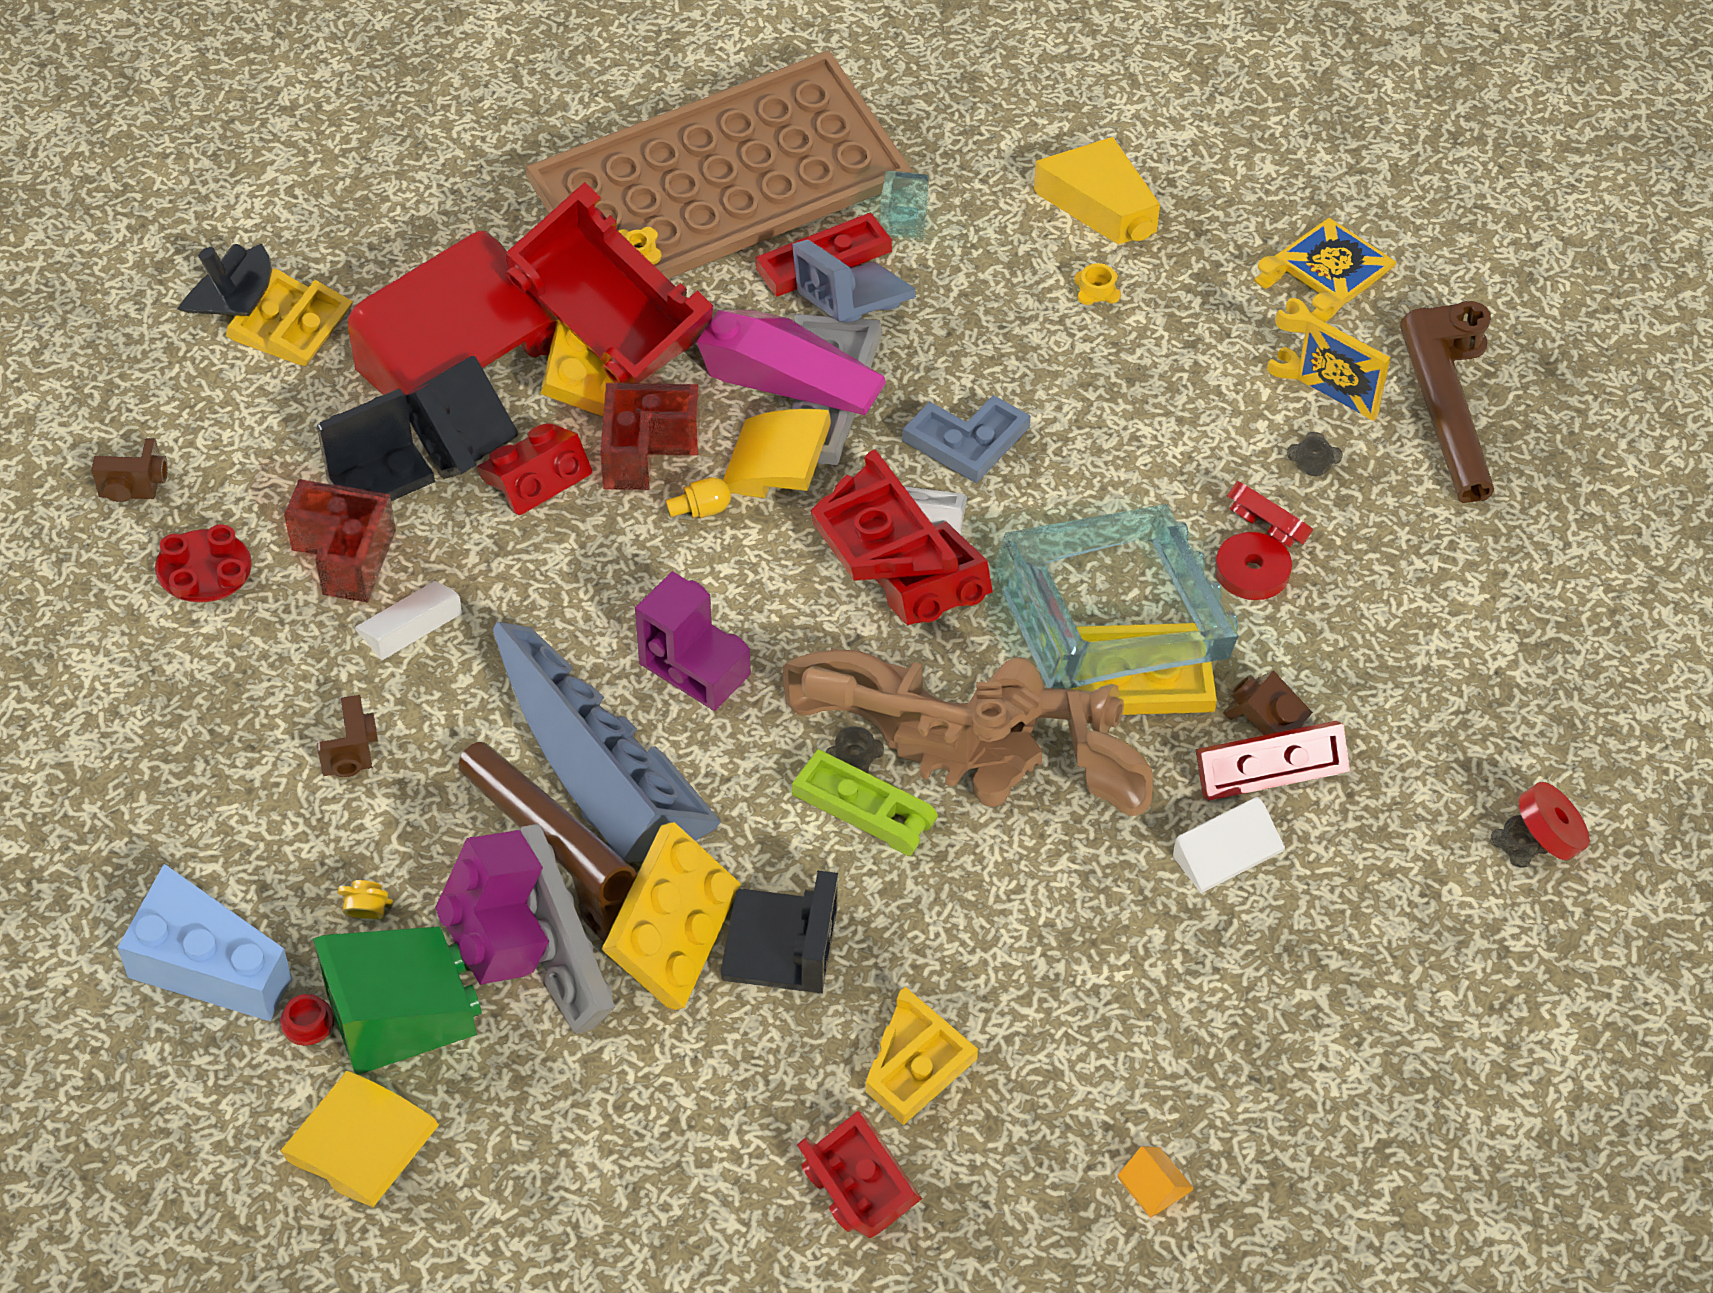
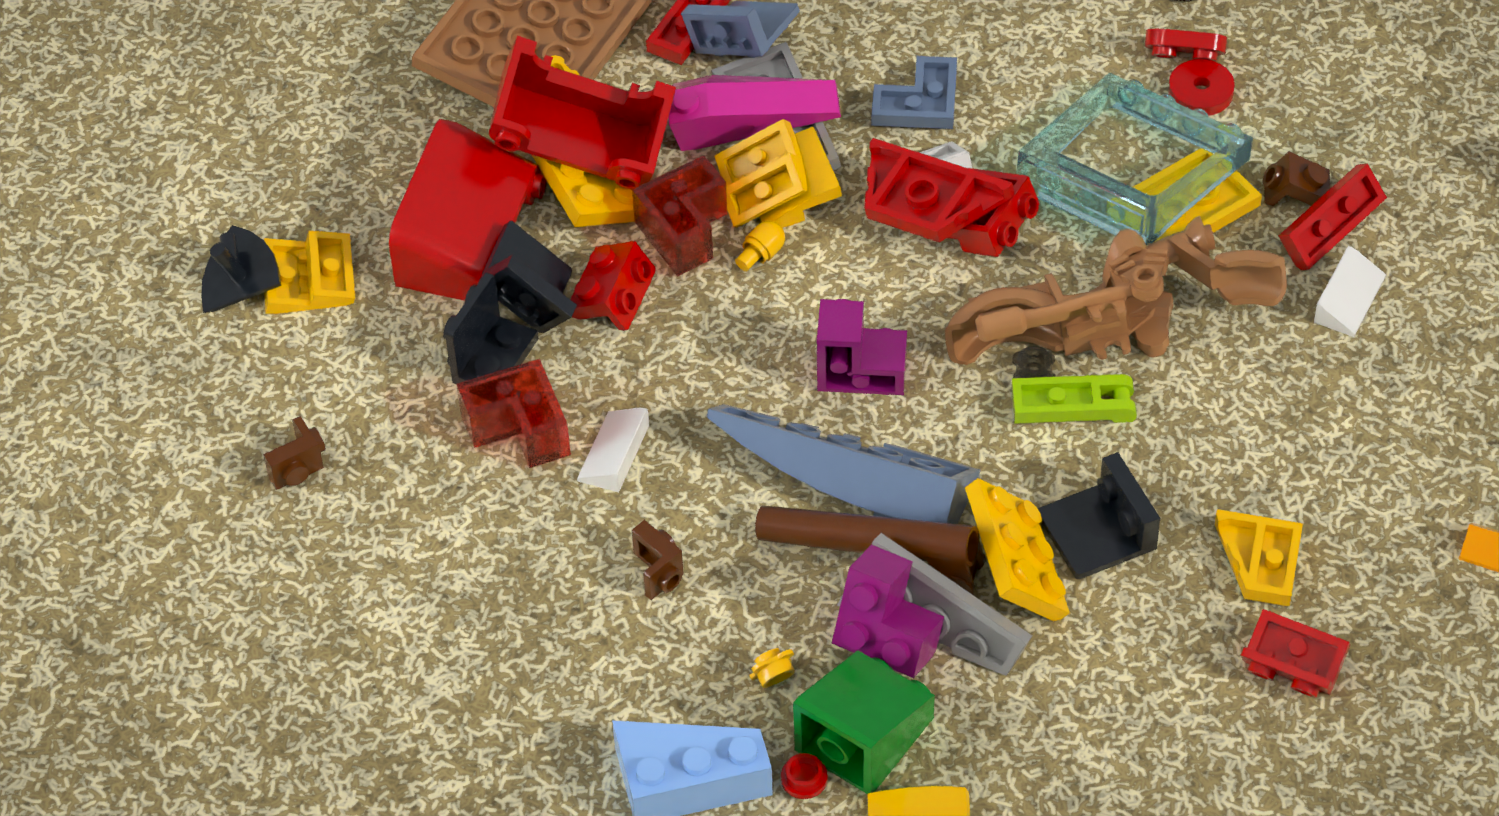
camera: 30 degrees left, 0 degrees up
(203, 564) = (416, 494): red dish -> none
(750, 430) = (762, 172): none -> yellow slope

